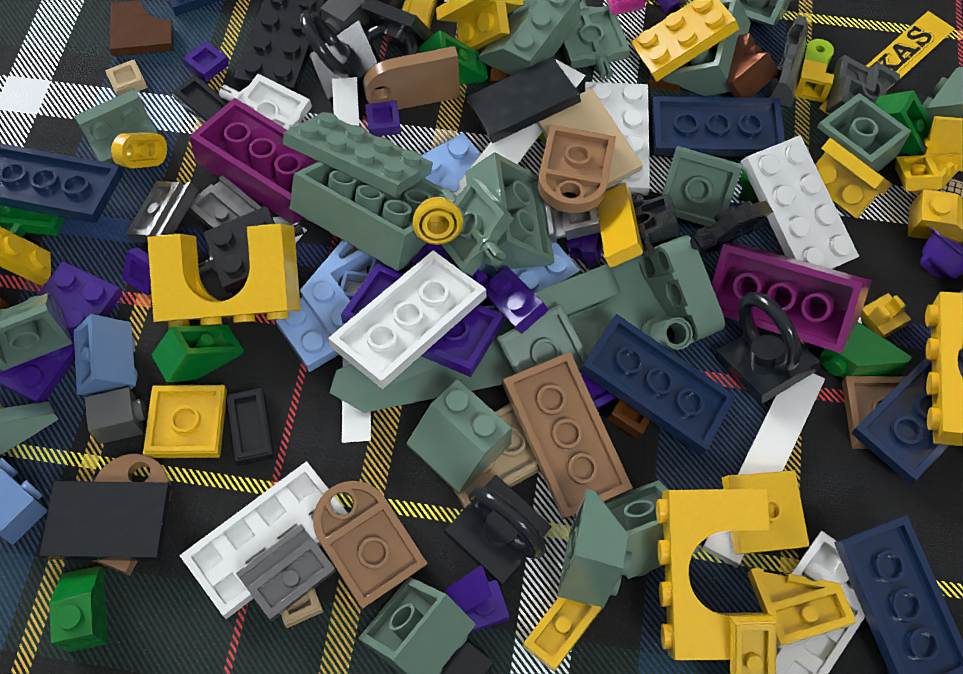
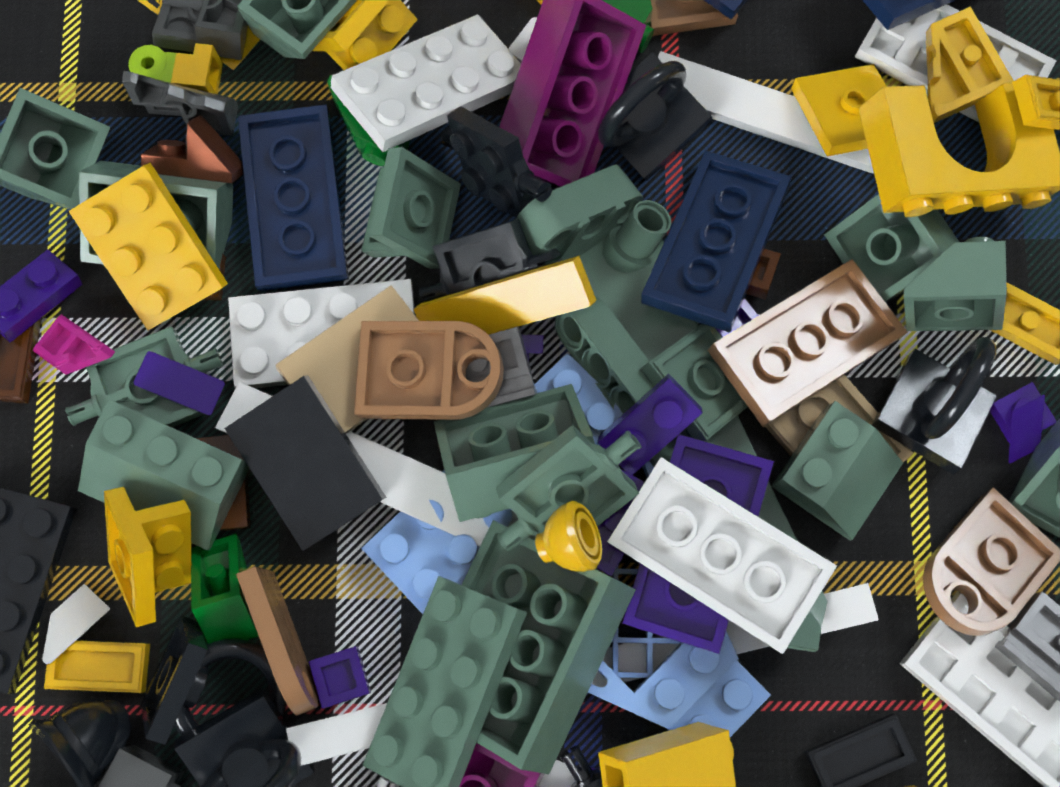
camera: 100 degrees left, 15 degrees up
(590, 49) = (179, 383): none -> dark purple sticker

